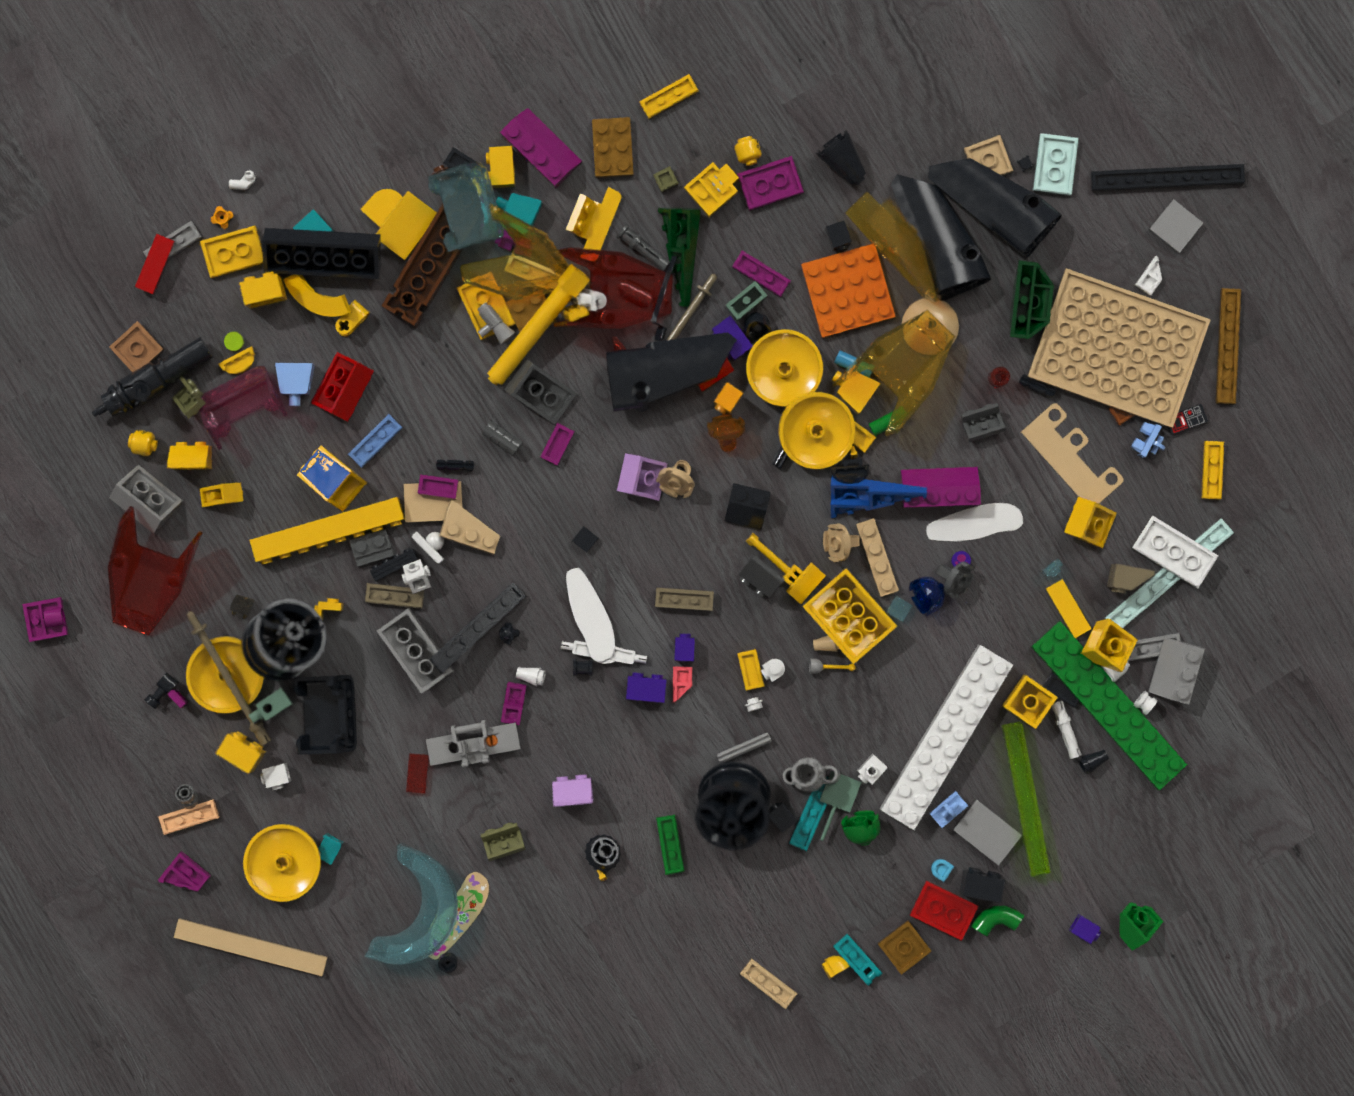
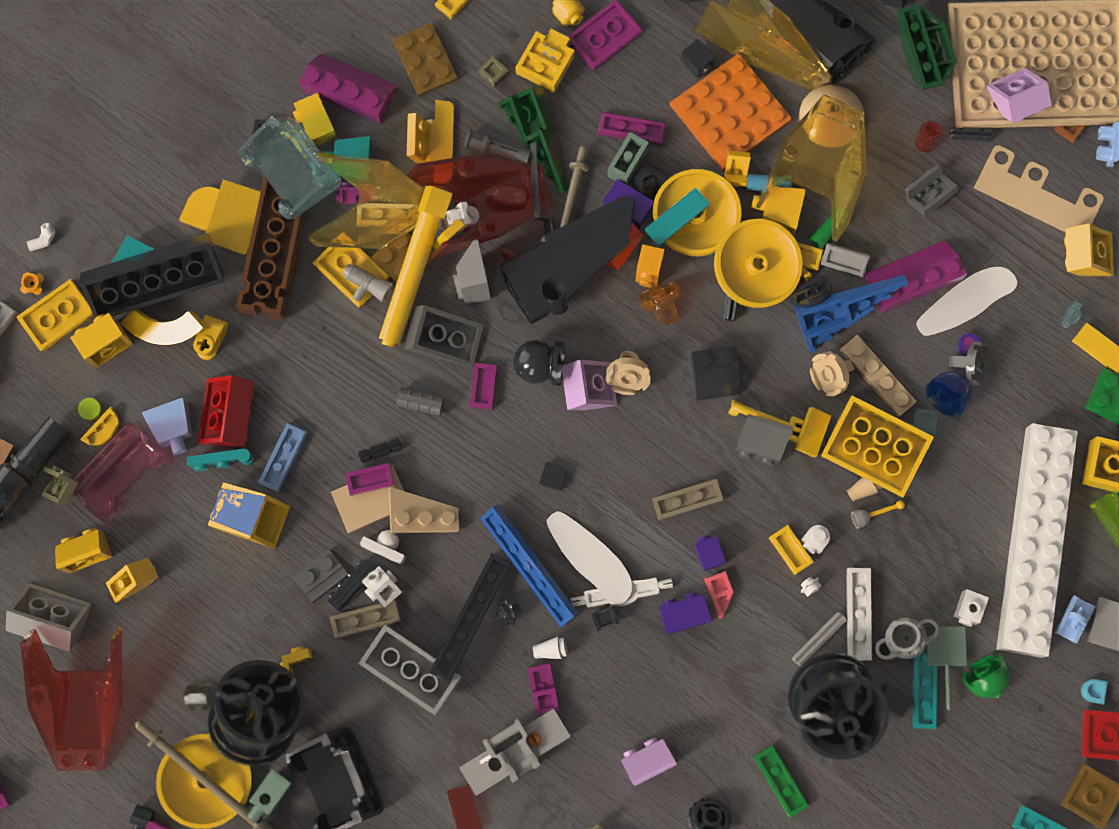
camera: 15 degrees left, 10 degrees down
(142, 443) = (24, 556): yellow head -> none
(325, 425) = (219, 459): none -> teal plate
(327, 529) = (263, 574): yellow brick -> none
(538, 603) = (529, 565): none -> blue plate
(580, 354) = (471, 276): none -> light grey slope
(607, 443) = (539, 362): none -> black tile
(766, 367) = (677, 217): none -> teal tile
(782, 740) = (859, 613): none -> white plate
(832, 343) = (737, 168): none -> yellow bracket
(890, 452) = (845, 259): none -> light grey tile
(1087, 371) = (1020, 95): none -> lavender slope

